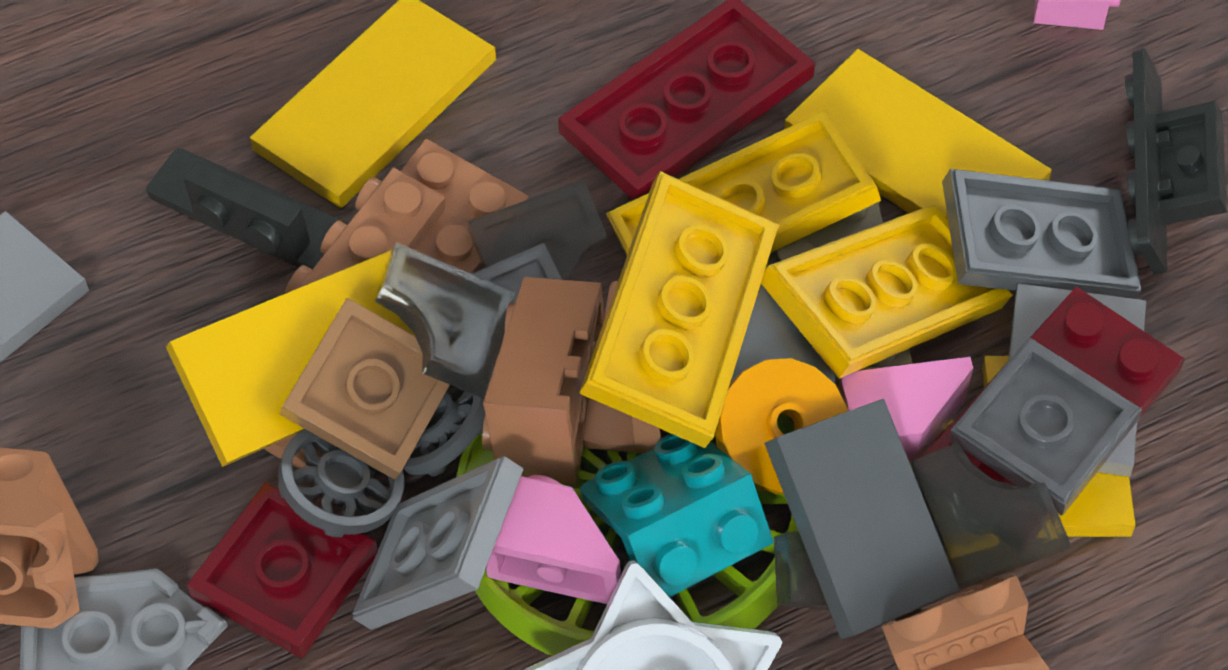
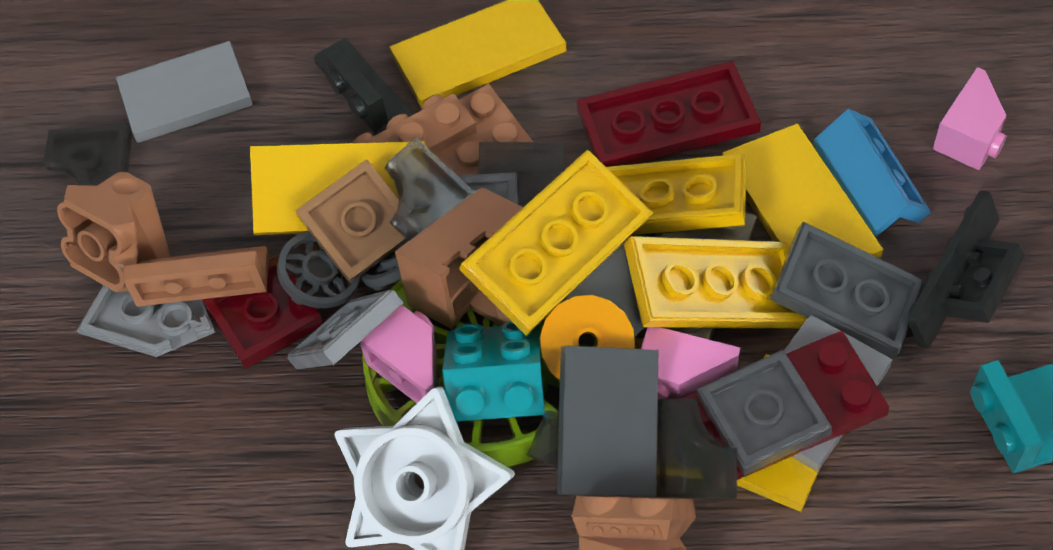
camera: 30 degrees right, 0 degrees up
(171, 554) = (198, 276): none -> nougat panel
(979, 79) = (869, 172): none -> dark azure panel

